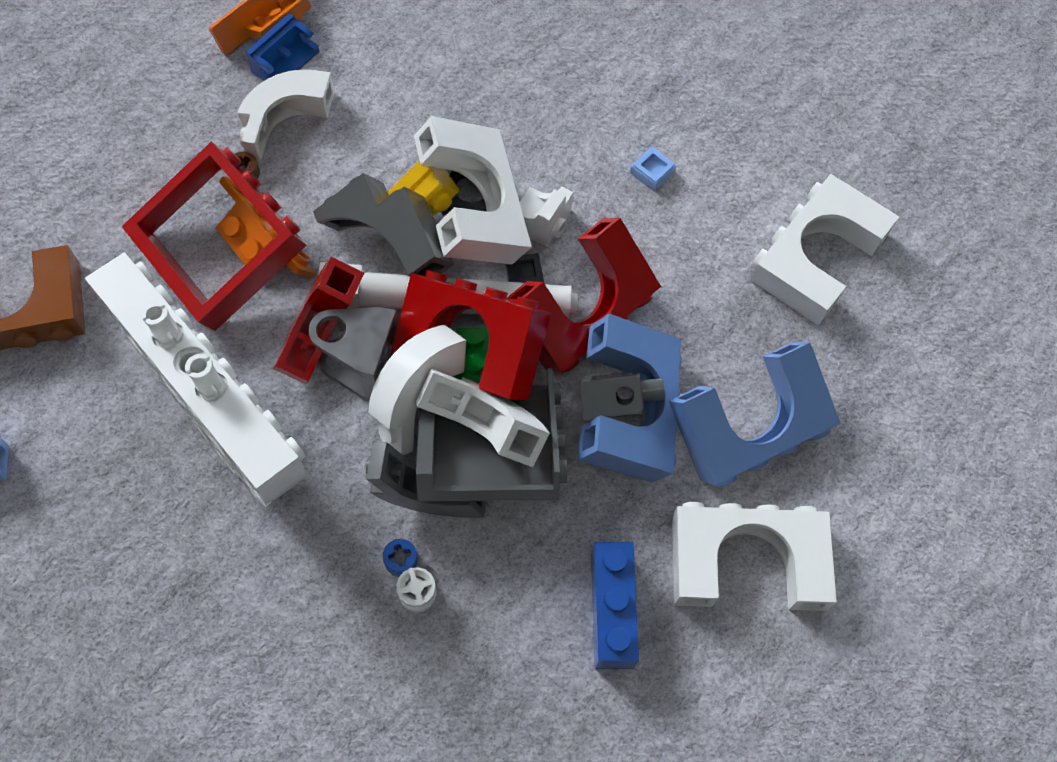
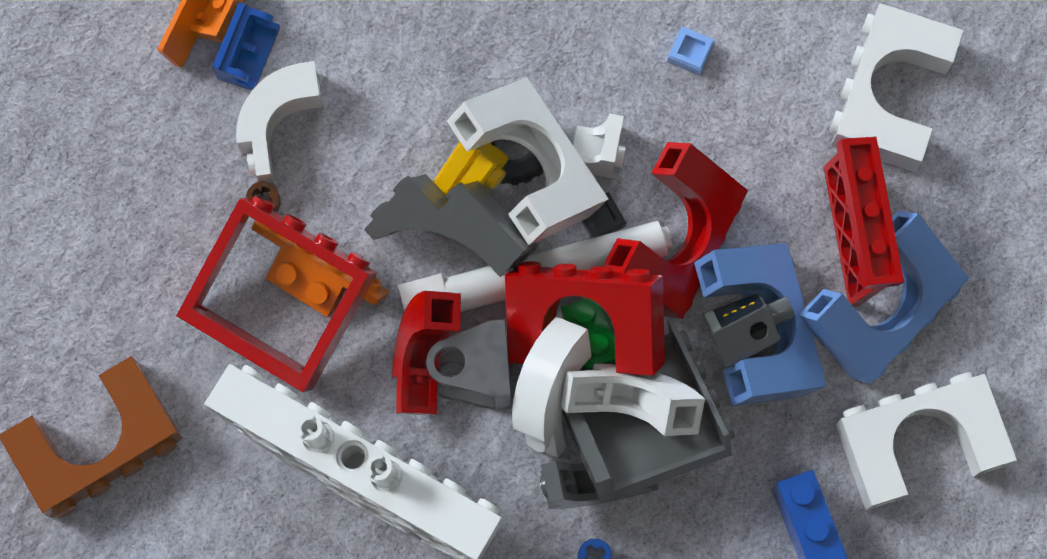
camera: 15 degrees left, 10 degrees up
(757, 335) = (862, 219): none -> red fence

